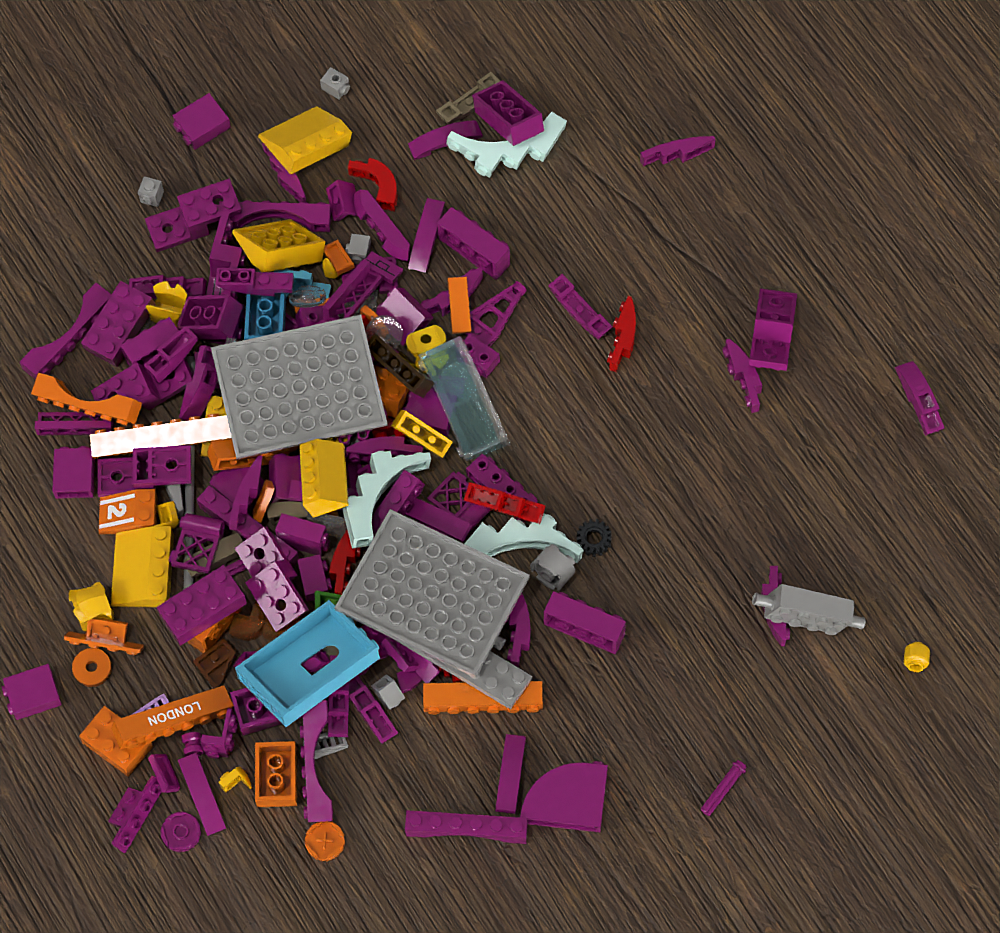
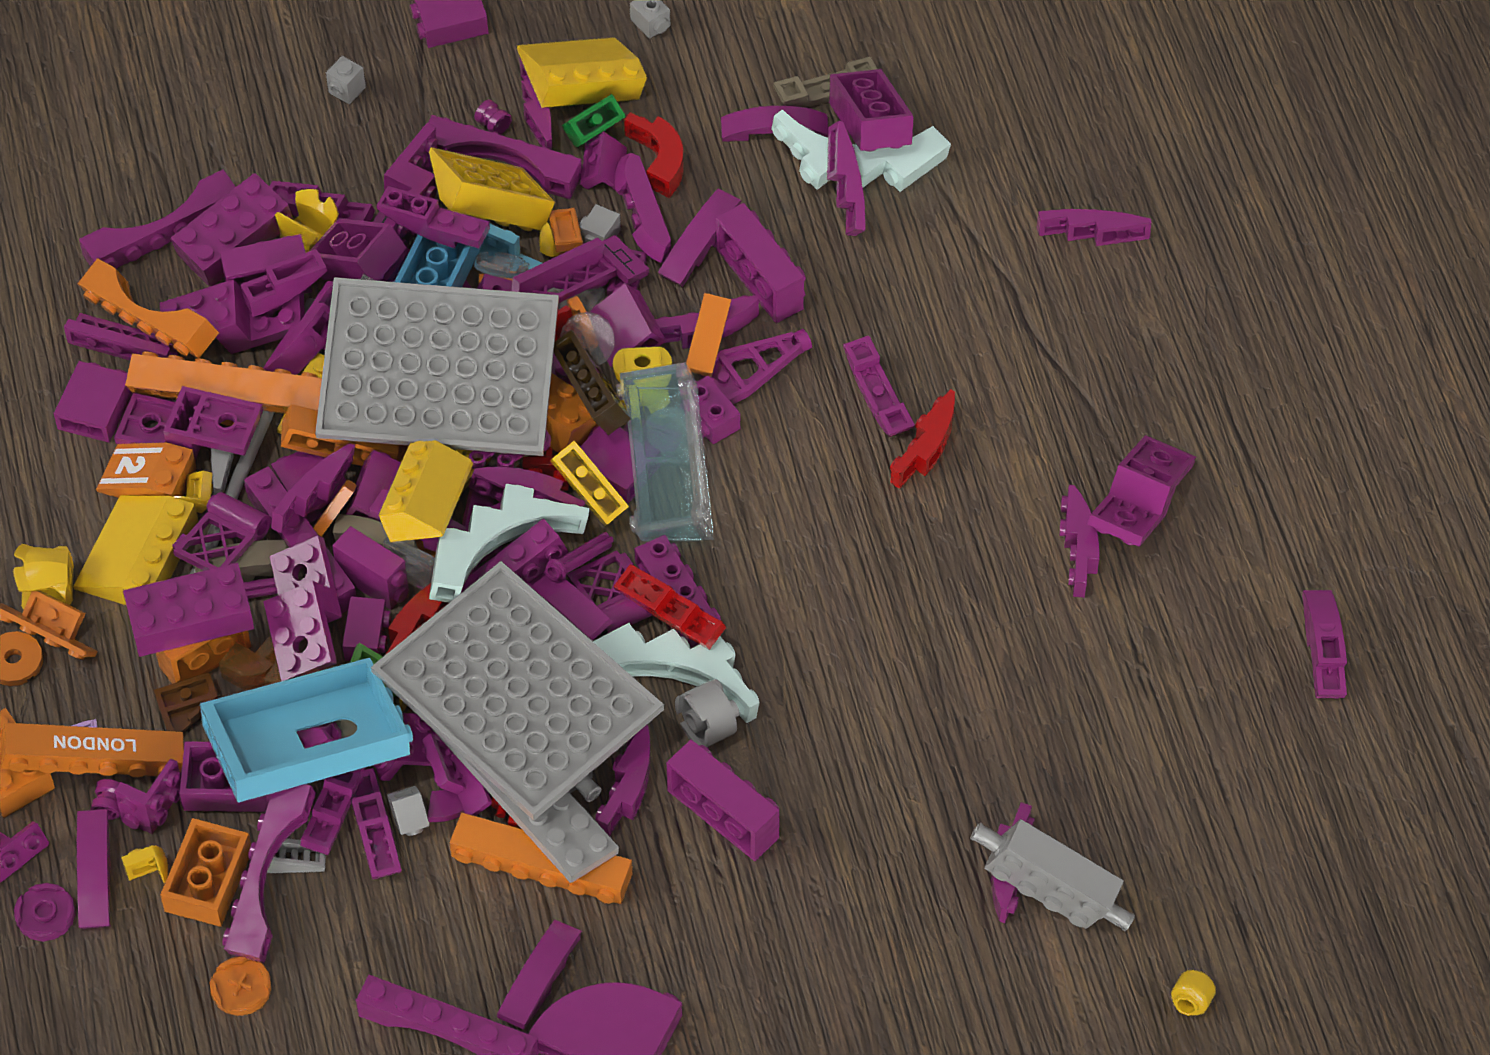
camera: 15 degrees right, 10 degrees down
(164, 773) = (53, 825): magenta tile -> none
(192, 215) = (383, 130): magenta bracket -> none
(258, 189) = (490, 116): none -> magenta wheel
(327, 173) = (593, 121): none -> green brick
(423, 499) = (558, 568): none -> magenta axle
(506, 161) = (844, 169): none -> magenta slope
(600, 528) = (787, 680): black tyre -> none

